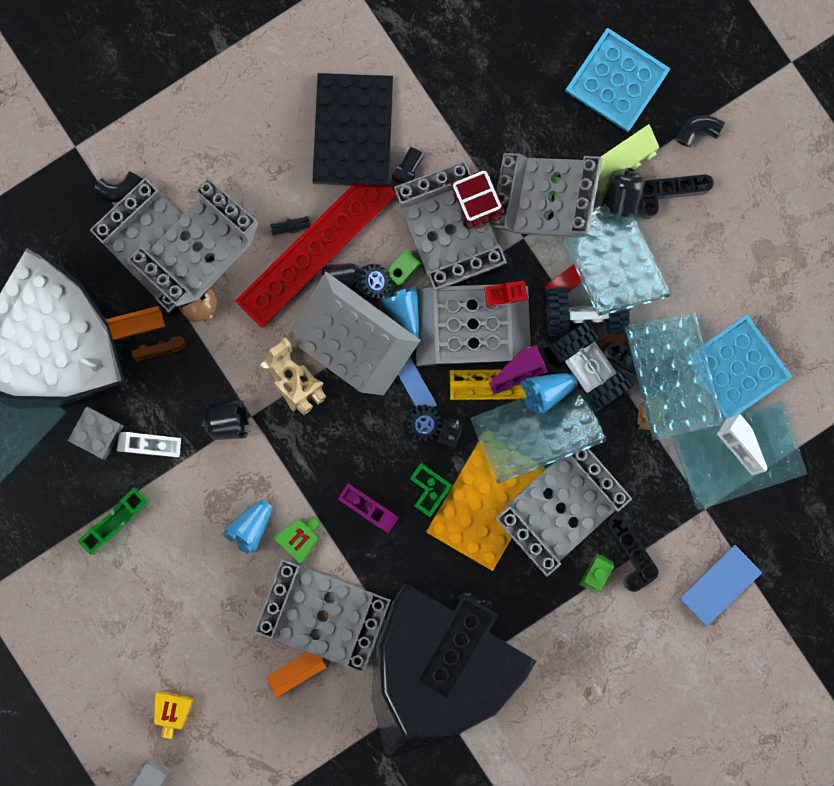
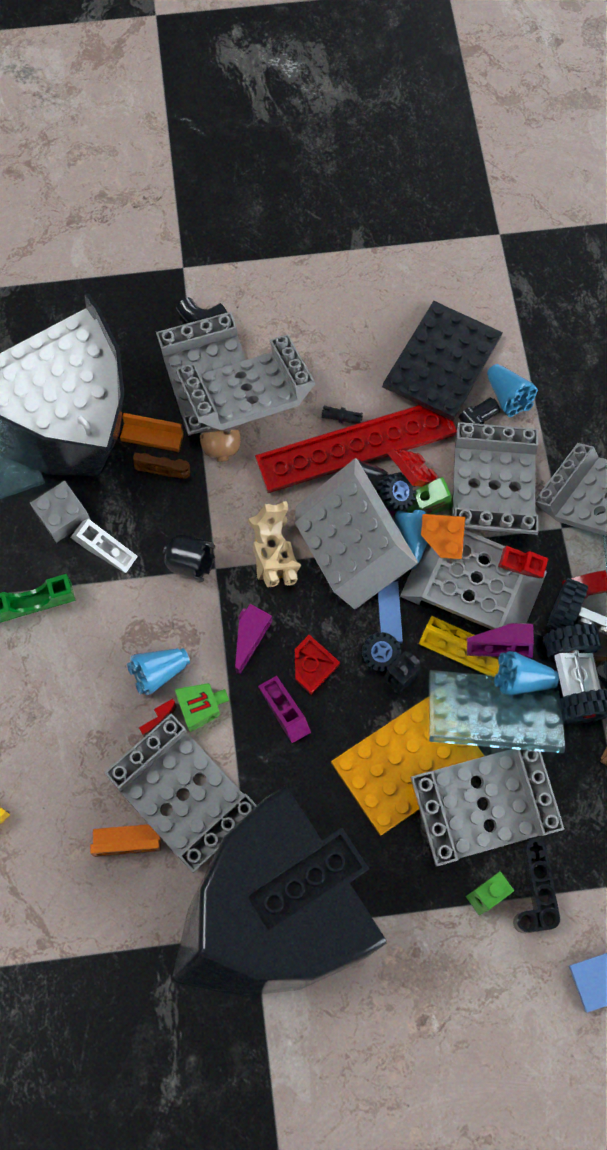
camera: 25 degrees right, 15 degrees down
(273, 561) = (162, 712): none -> red slope
(308, 455) = (252, 628): none -> magenta slope
(373, 460) = (313, 664): none -> red plate
(377, 251) = (413, 467): none -> red plate
(425, 132) = (511, 390): none -> dark azure cone
(430, 302) = (444, 534): none -> orange plate
(434, 487) = (360, 720): green brick -> none
(478, 199) = (535, 466): dark red brick -> none

